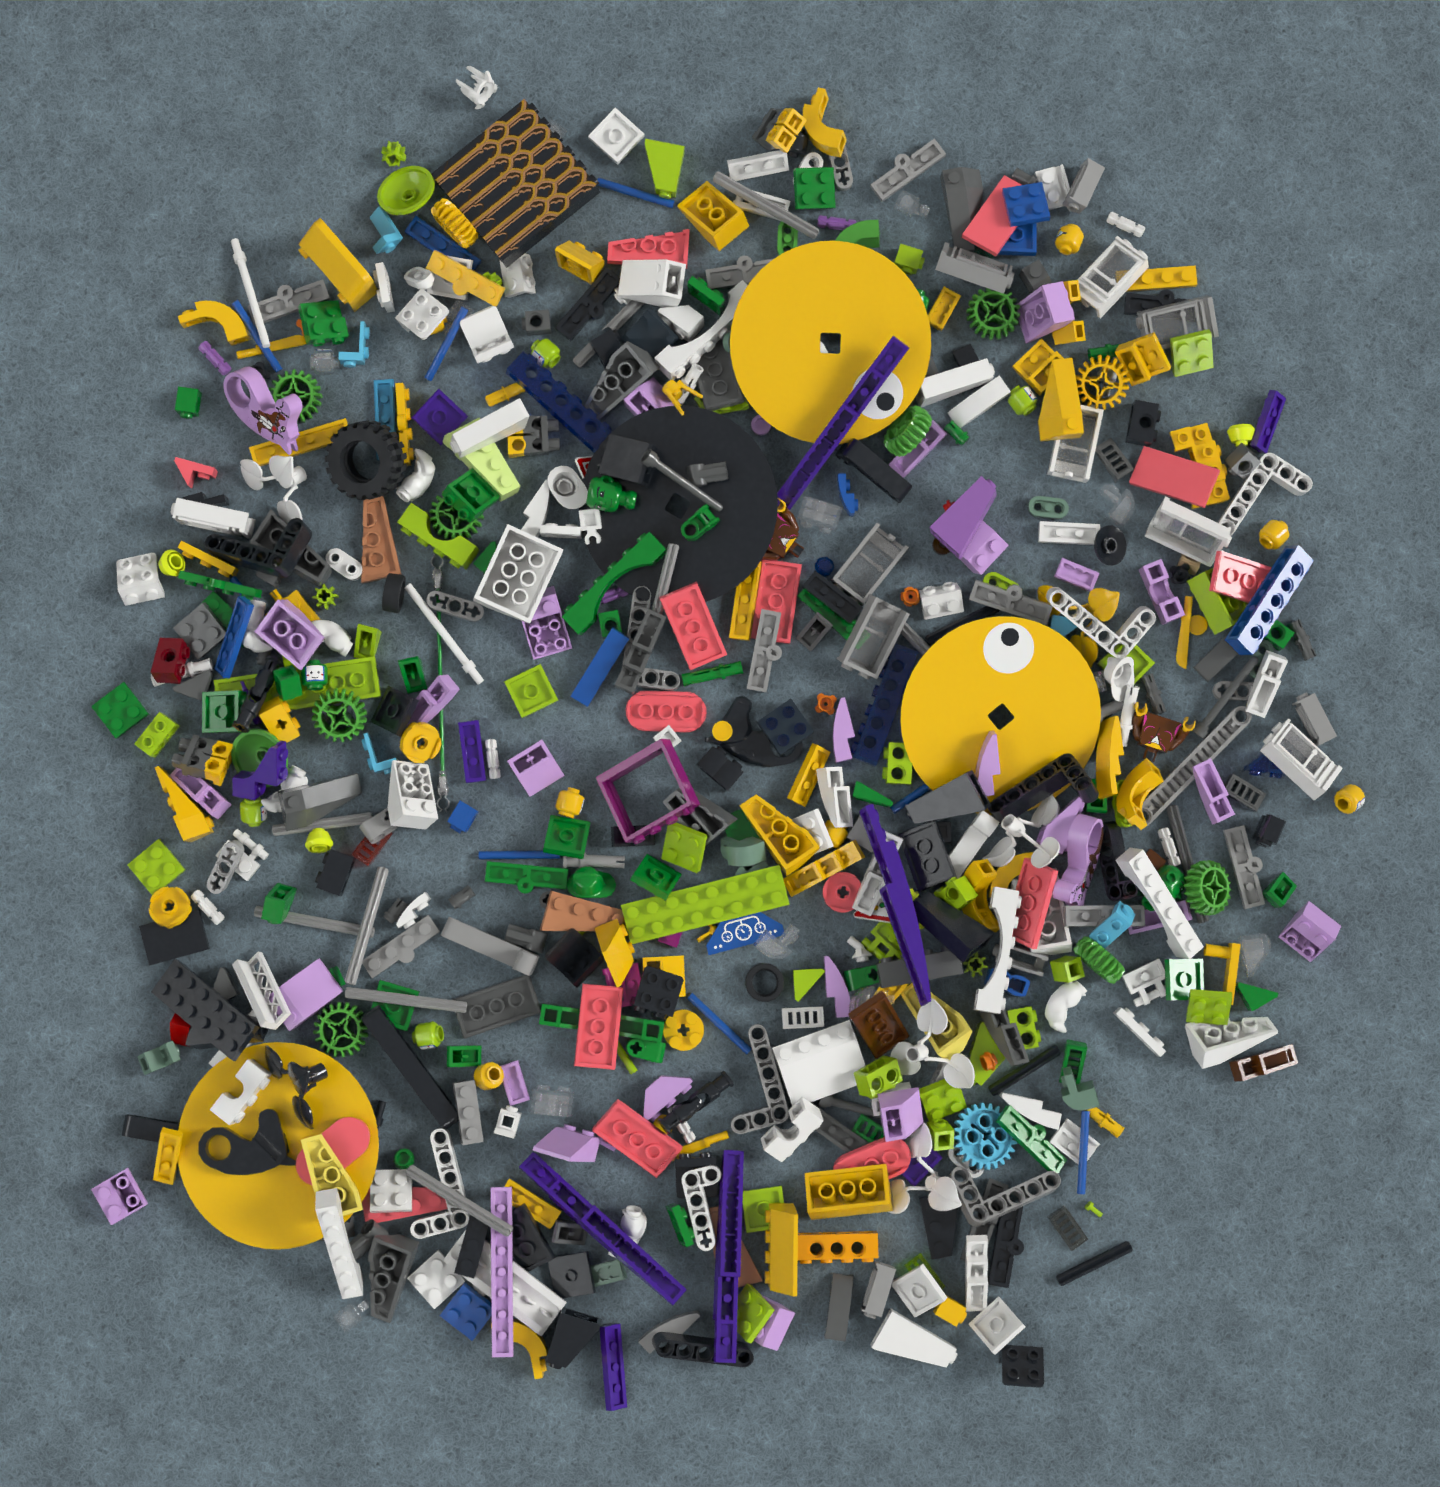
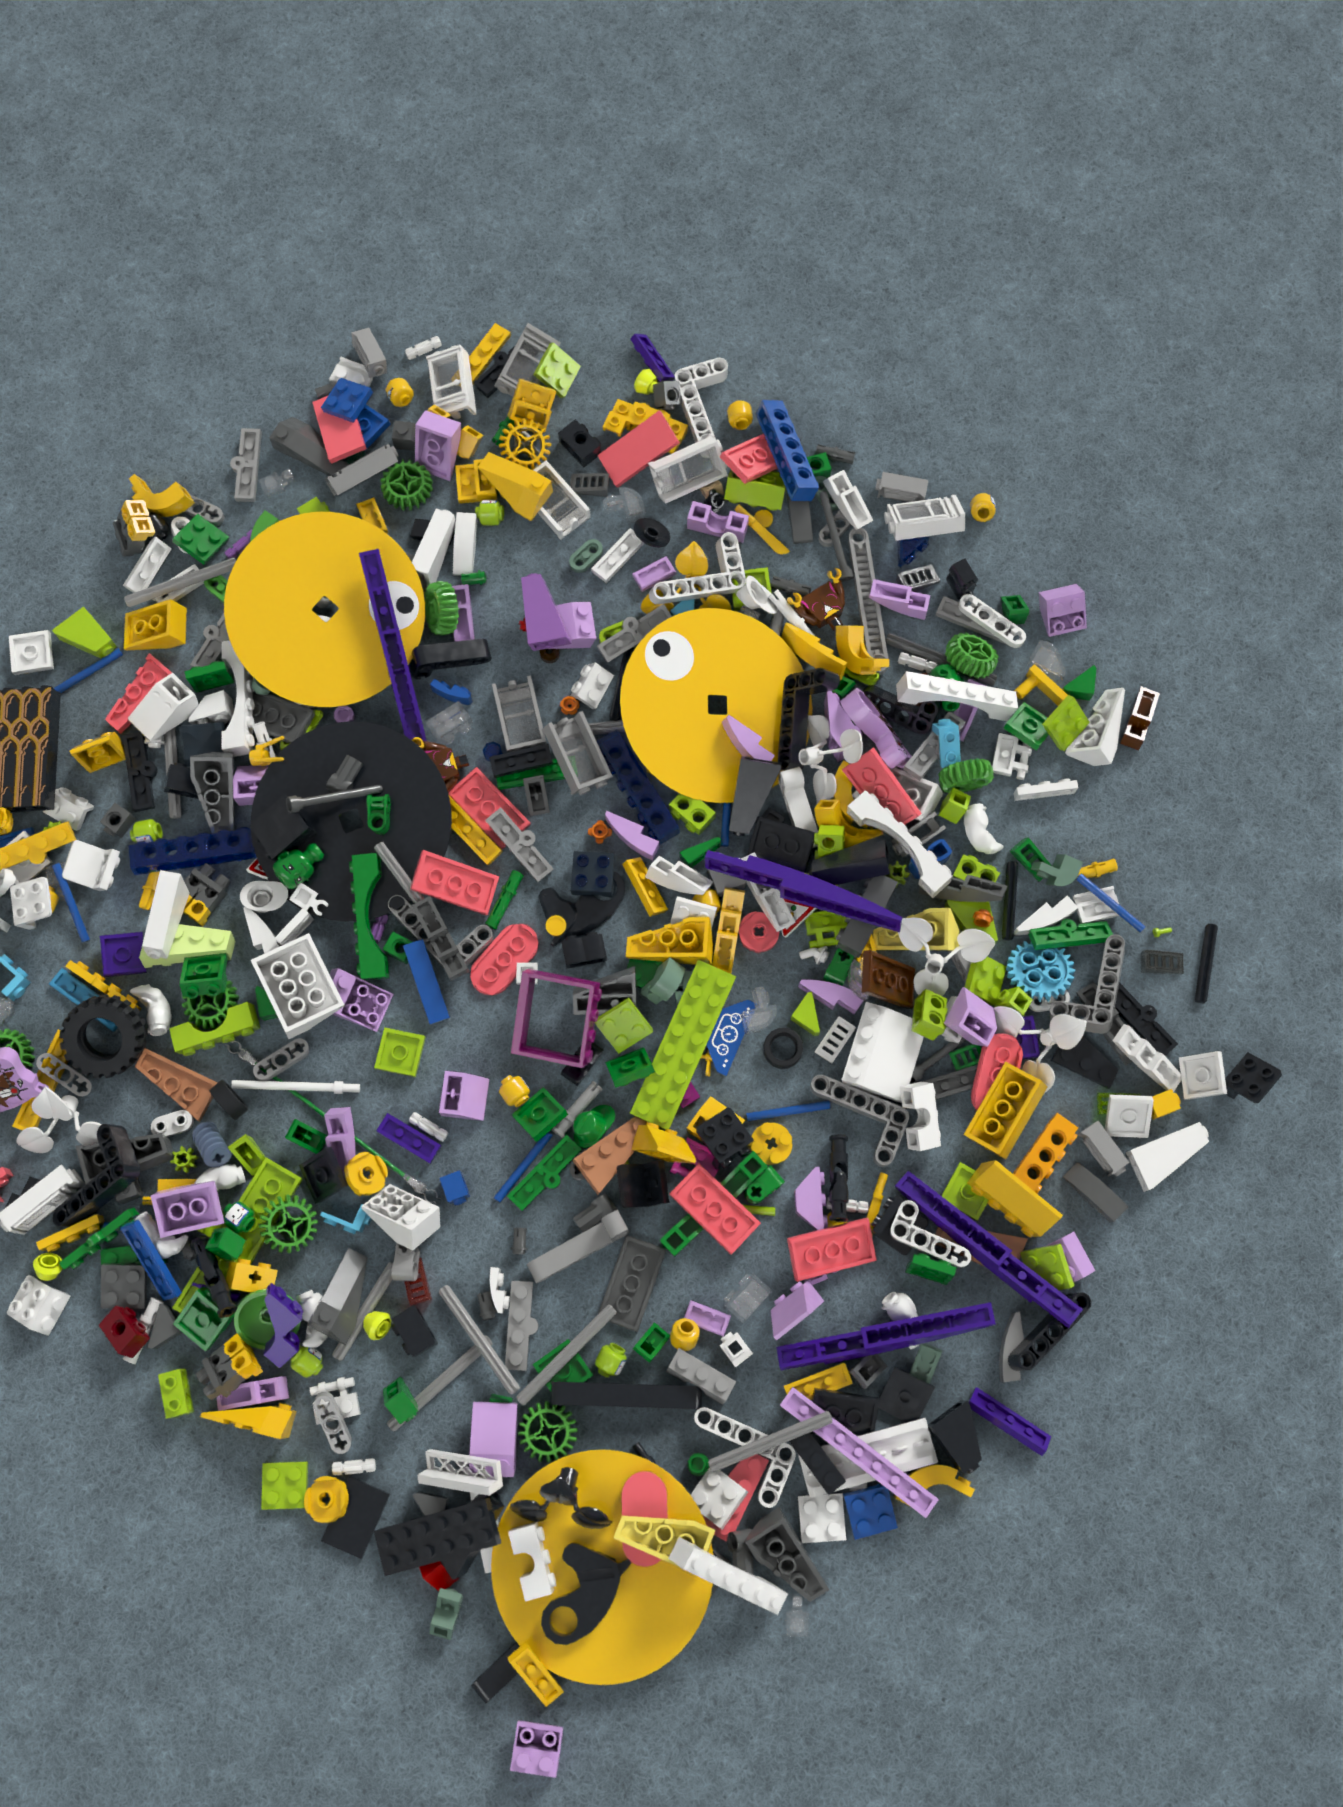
camera: 45 degrees left, 10 degrees down
(120, 710) = (129, 1410): green plate -> none
(322, 467) = (54, 1060): none -> light grey beam
(351, 608) = (211, 1144): none -> sand blue piece
(1248, 881) = (994, 617): none -> white beam

